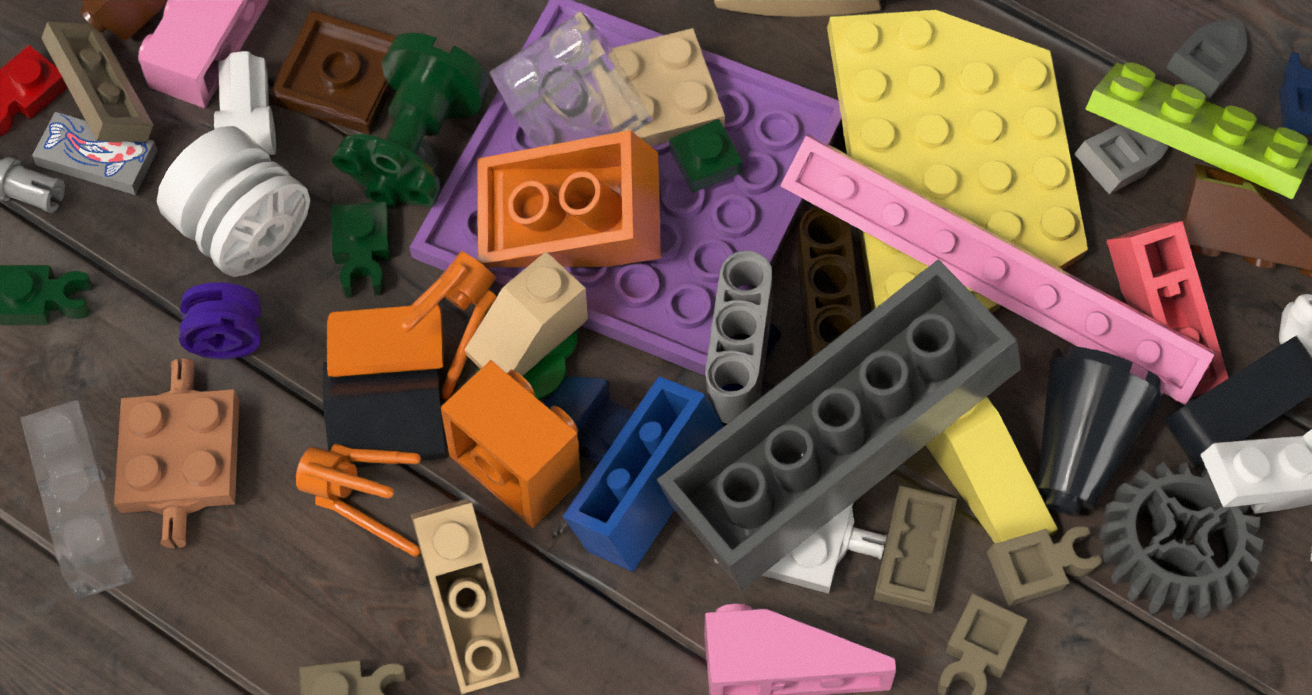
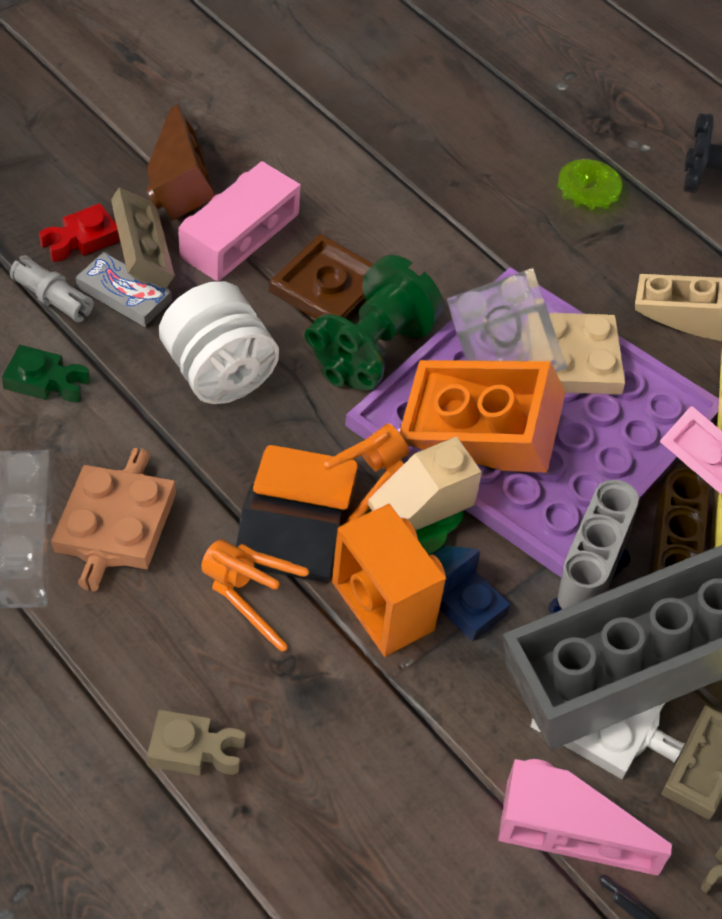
camera: 10 degrees right, 10 degrees down
(220, 320) = (180, 427): dark purple wheel -> none
(245, 98) = (252, 275): white piece -> none
(359, 241) = (307, 404): dark green plate -> none
(465, 595) = (314, 691): tan slope -> none
(622, 501) = (468, 649): blue brick -> none
(705, 156) = (602, 409): dark green plate -> none

